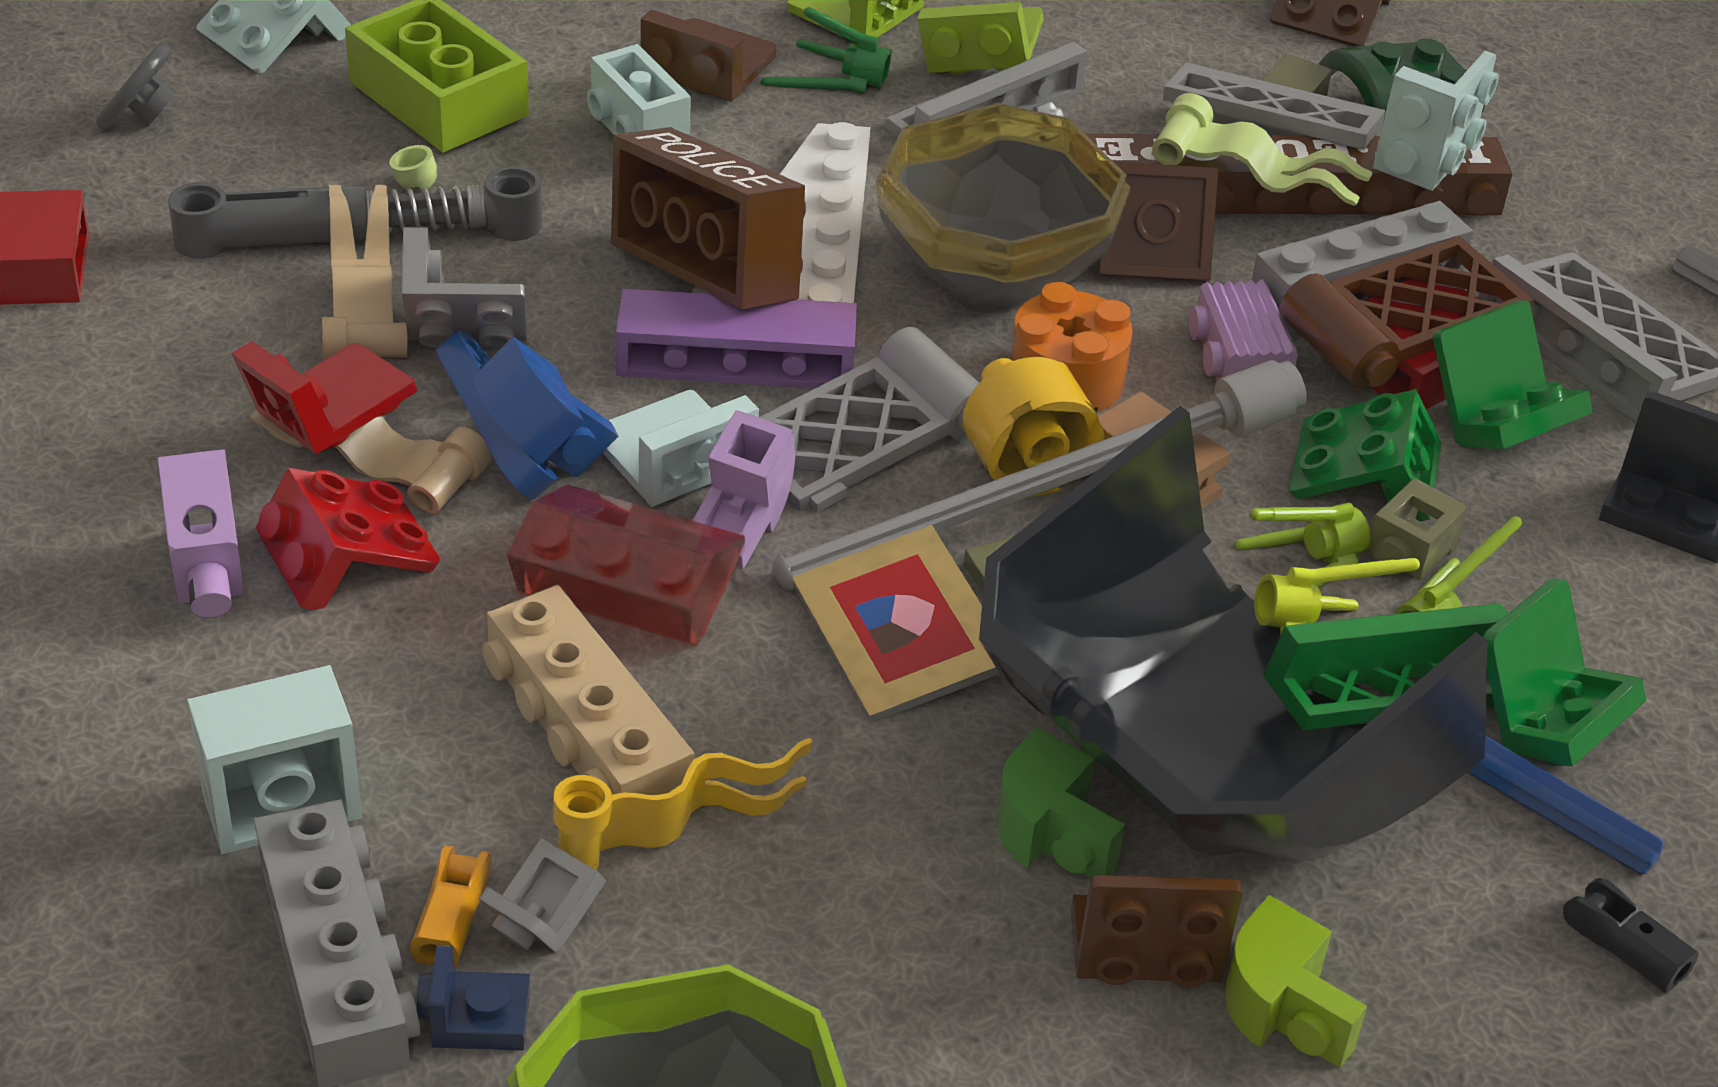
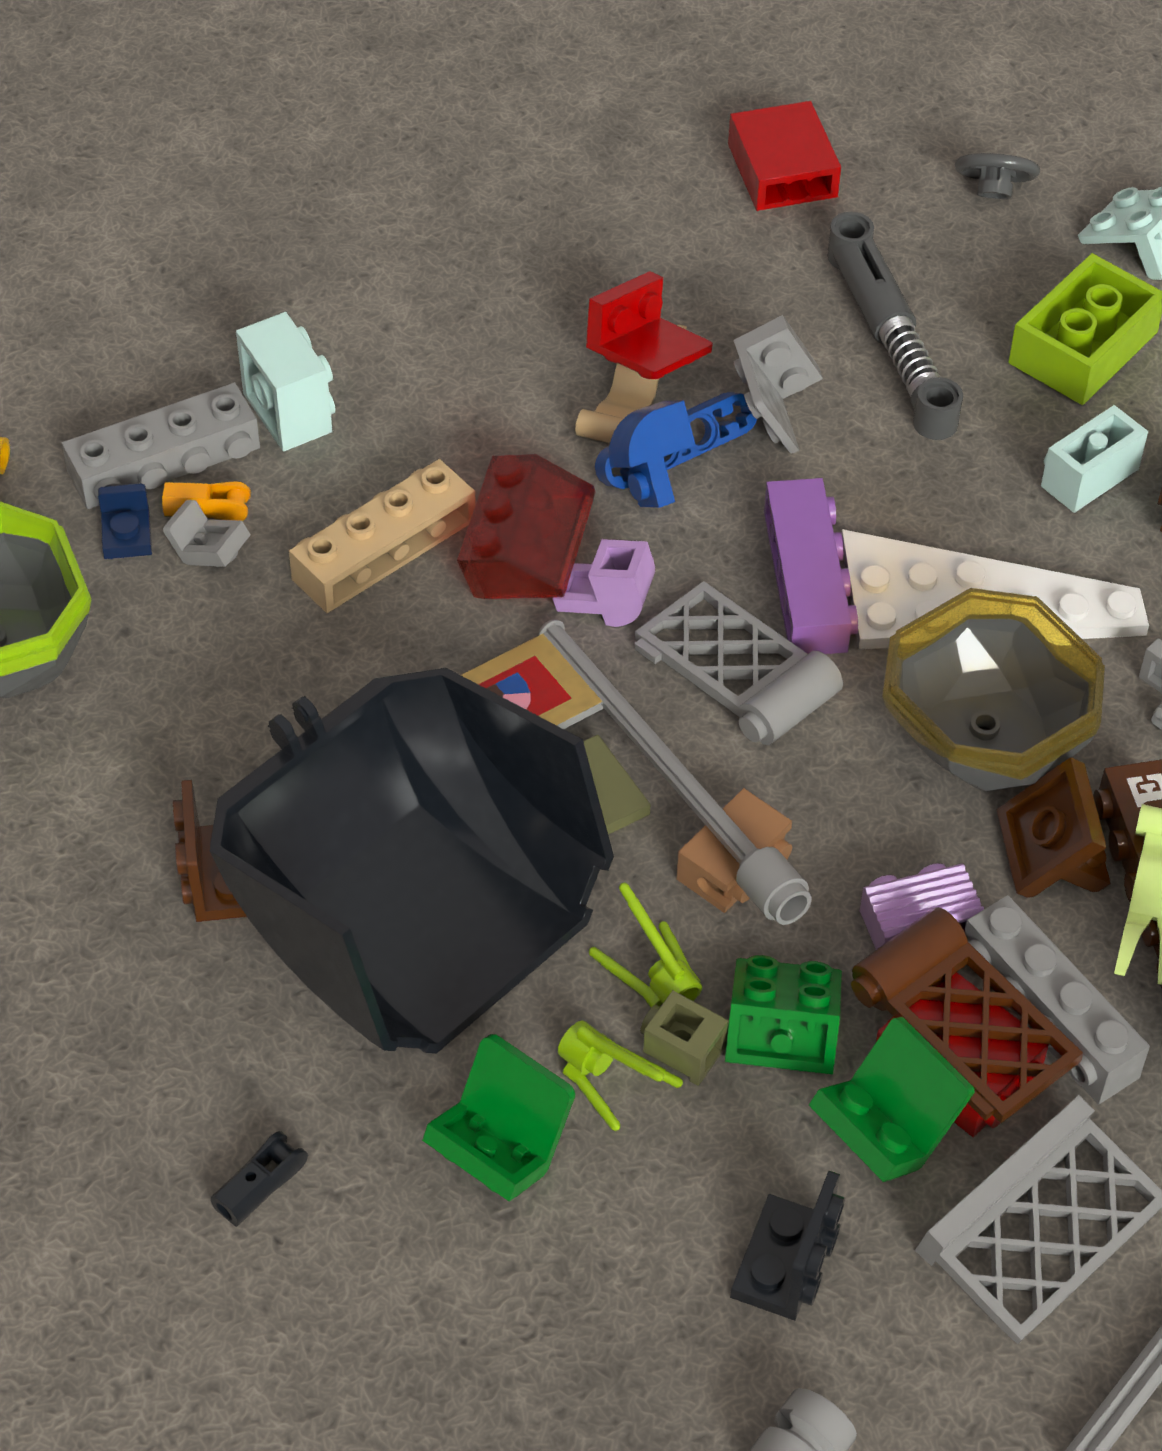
camera: 85 degrees right, 10 degrees up
(202, 555) = (491, 309): lavender torso -> none
(327, 521) = (531, 387): red bracket -> none
(362, 285) = (818, 334): tan flag -> none
(414, 167) = (968, 346): yellowish green hinge -> none
(597, 820) = (258, 532): yellow flag -> none
(669, 442) = (681, 543): light aqua bracket -> none
(708, 216) = (903, 502): reddish brown brick -> none
(1028, 415) = (728, 746): yellow brick -> none
(1081, 332) = (852, 779): orange brick -> none
(1278, 985) = (179, 933): lime brick -> none
(1296, 600) = (555, 935): neon yellow plant -> none
(1371, 651) = (506, 984): green fence -> none
(1568, 808) = (405, 1126): blue axle -> none

